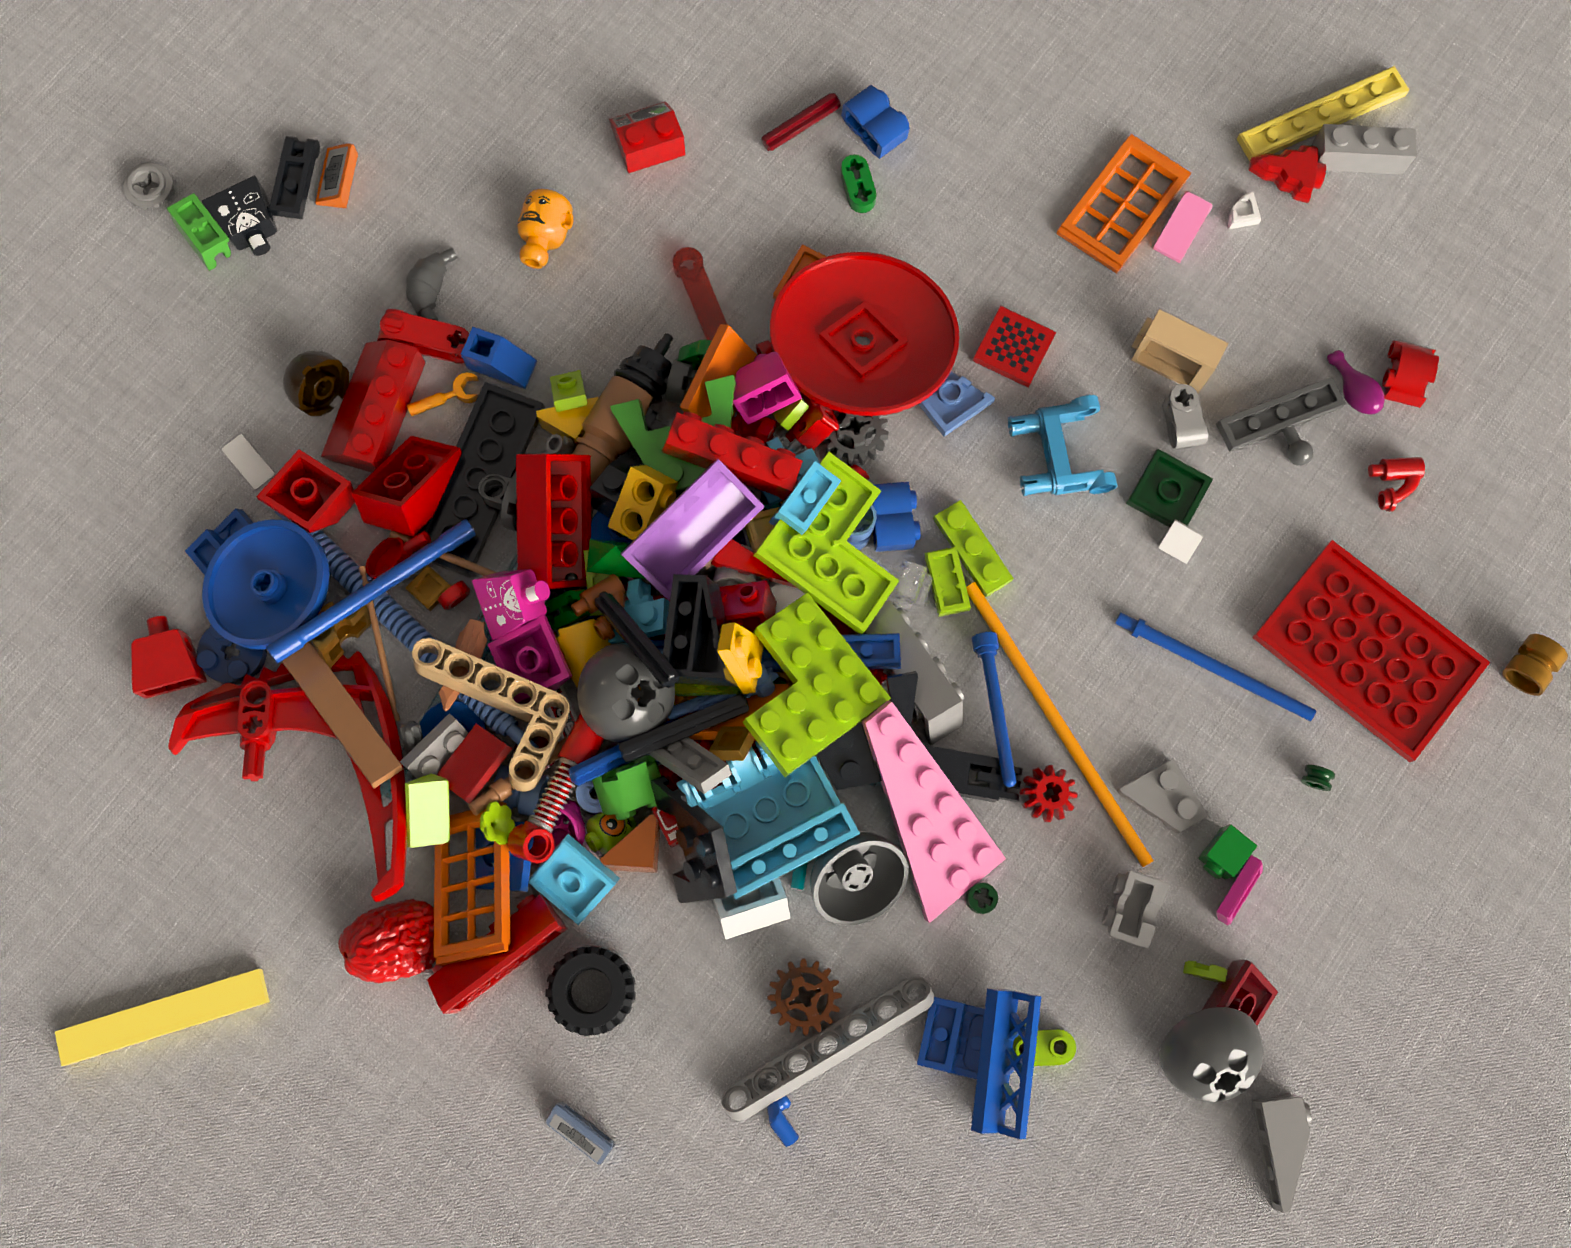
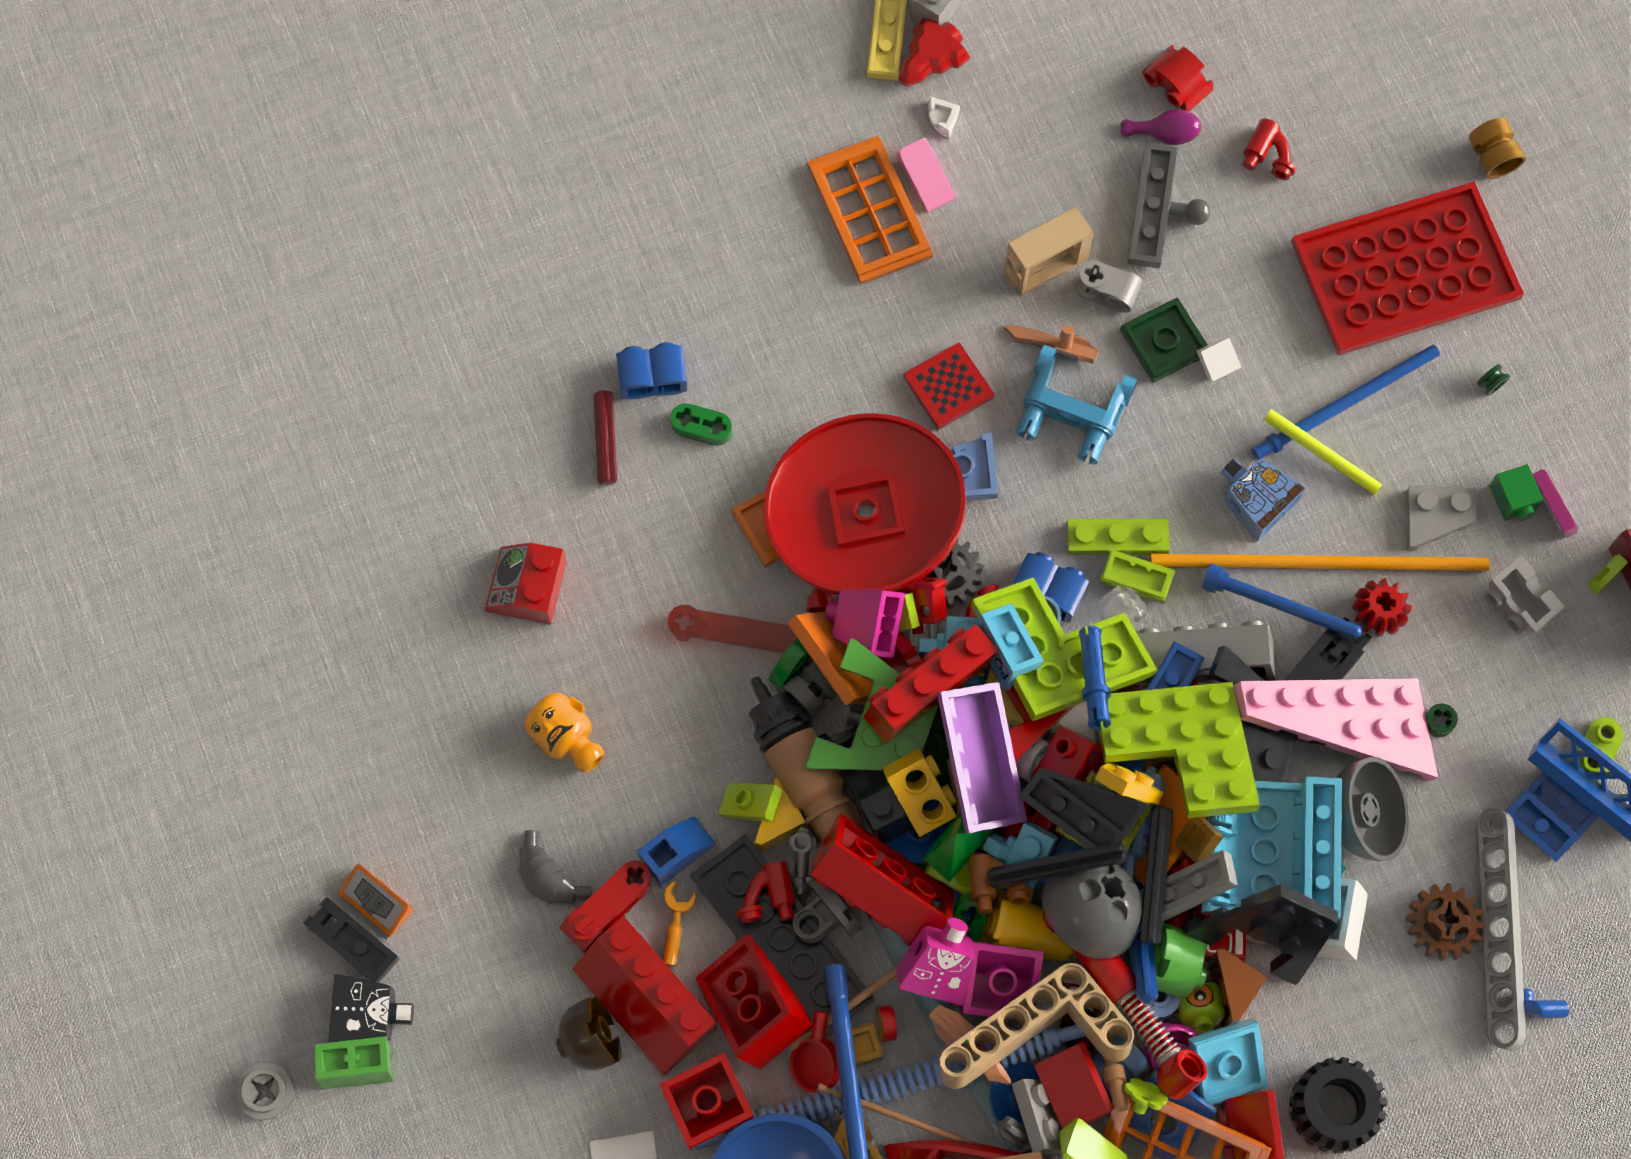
camera: 55 degrees left, 5 degrees down
(505, 455) = (780, 889): none -> red plant
(809, 587) = (1095, 689): none -> blue pin
(1082, 640) = (1260, 495): none -> medium blue torso
(1111, 415) = (1066, 343): none -> nougat piece
(1155, 670) = (1322, 452): none -> neon yellow bar

